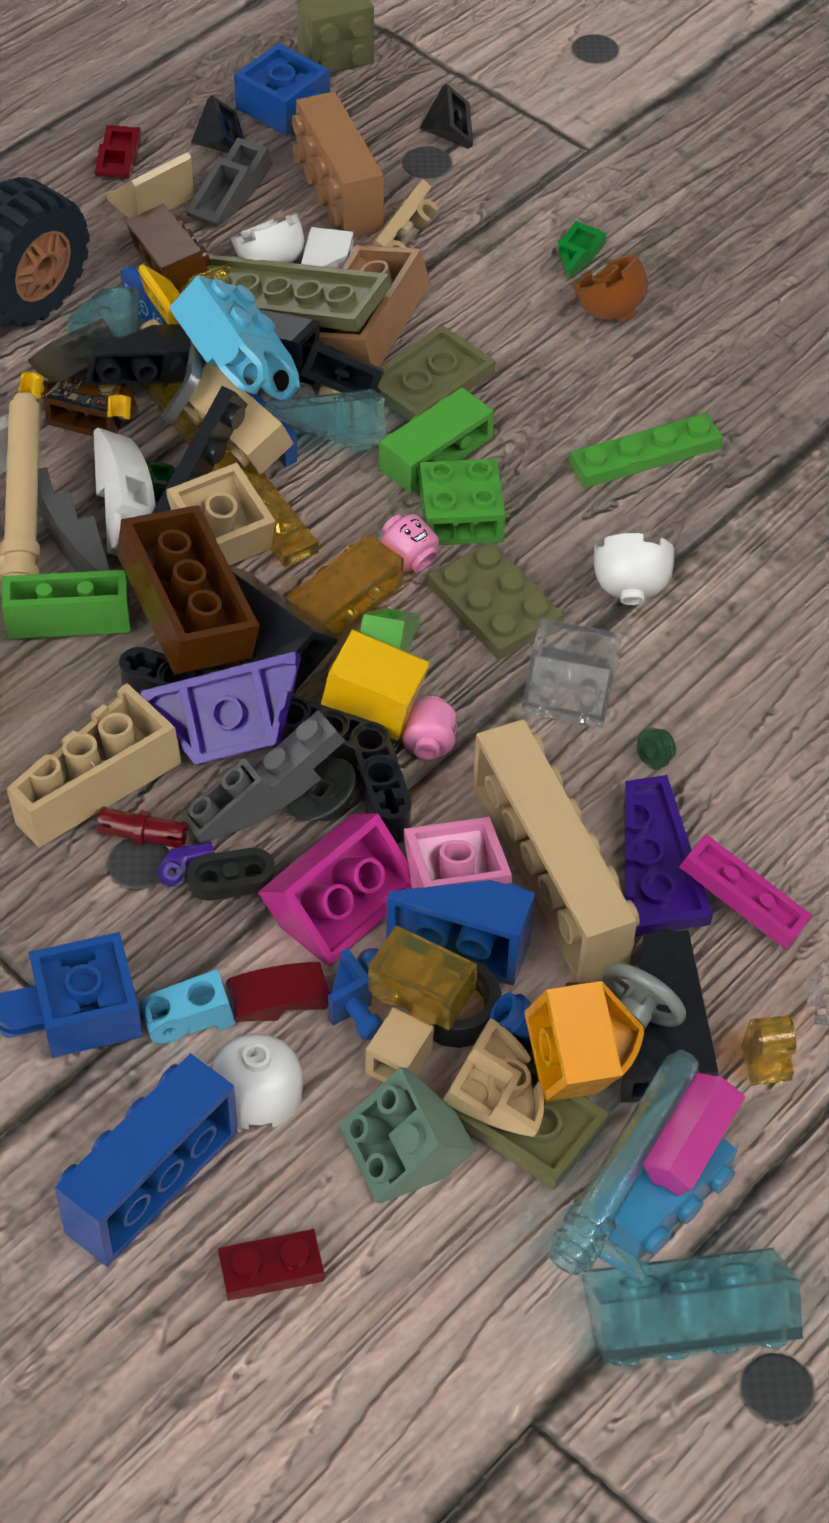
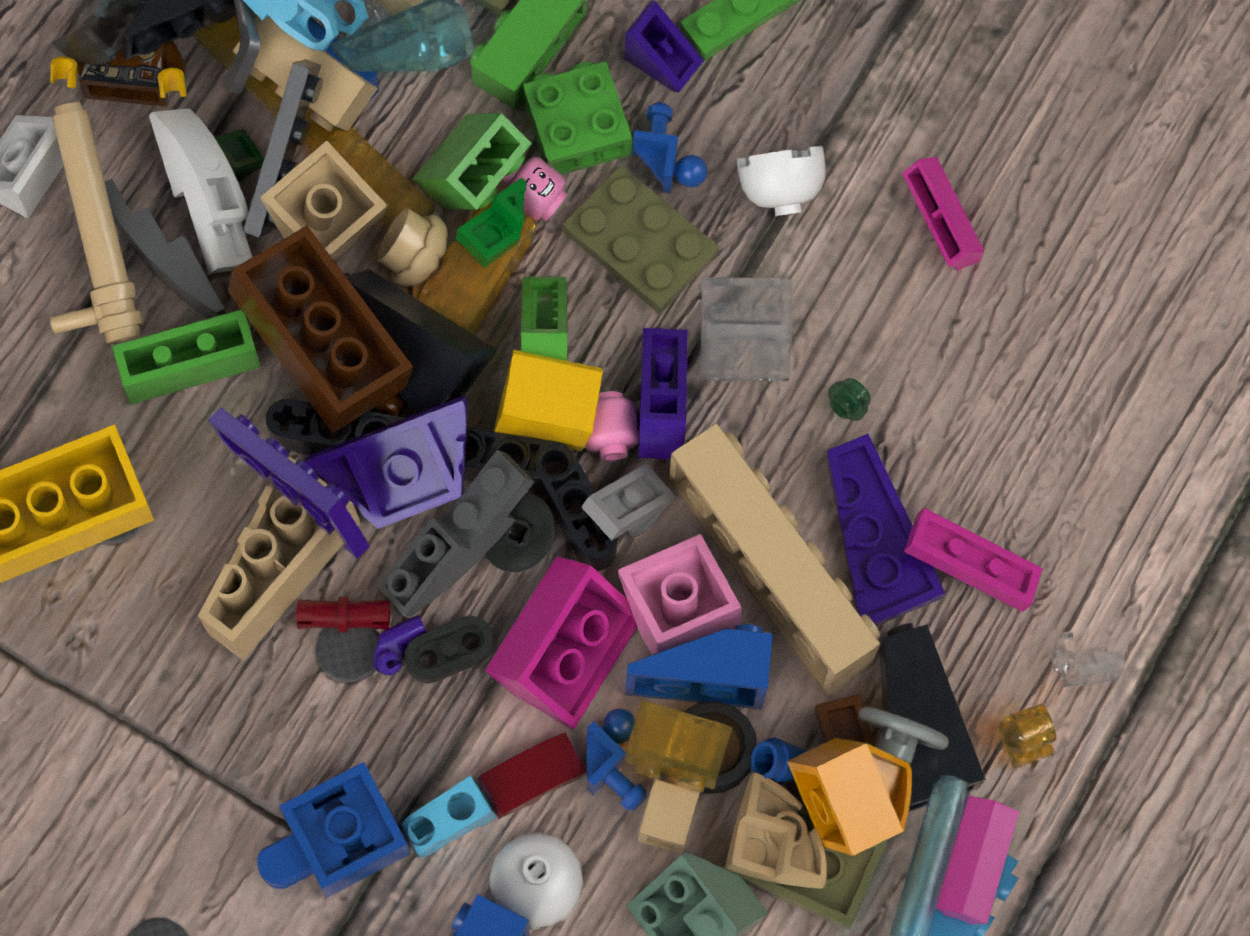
camera: 15 degrees left, 20 degrees up
(127, 691) = (294, 480): none -> dark purple wing
(290, 560) = (413, 247): none -> tan piece
(360, 506) = (473, 161): none -> bright green brick
(366, 555) = (497, 227): none -> green slope
(433, 783) = (629, 503): none -> light grey plate
(481, 709) = (663, 392): none -> dark purple slope
(528, 536) = (660, 151): none -> blue piece
(546, 463) = (660, 48): none -> dark purple slope
(792, 656) = (949, 211): none -> dark pink piece

